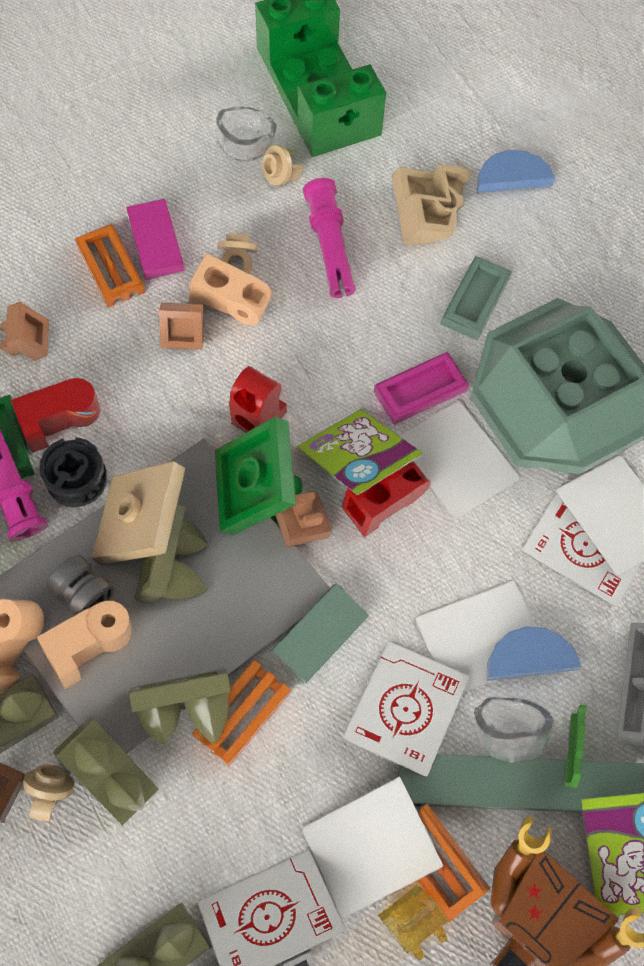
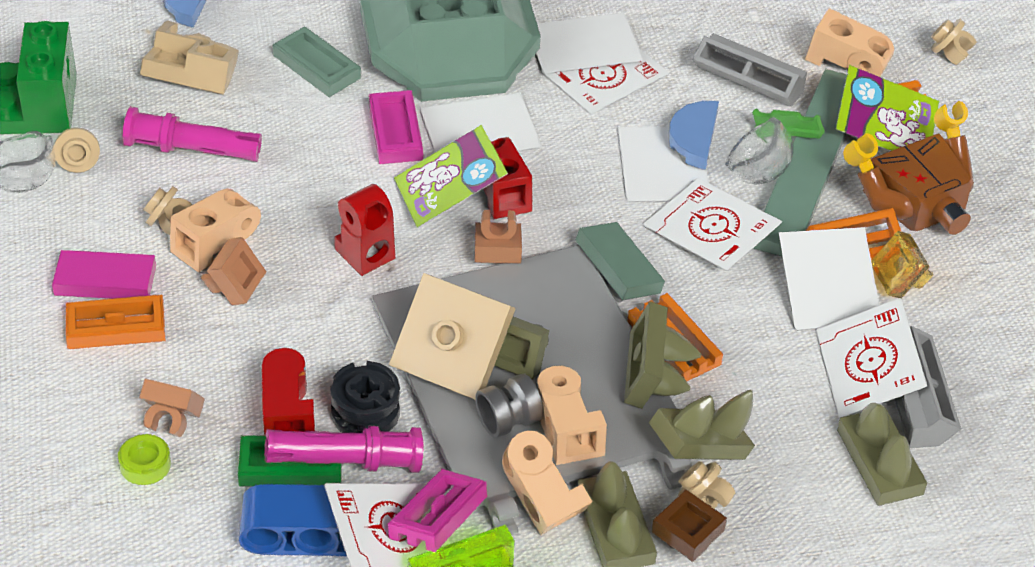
camera: 70 degrees left, 20 degrees down
(255, 476) = (451, 241): green tile -> none

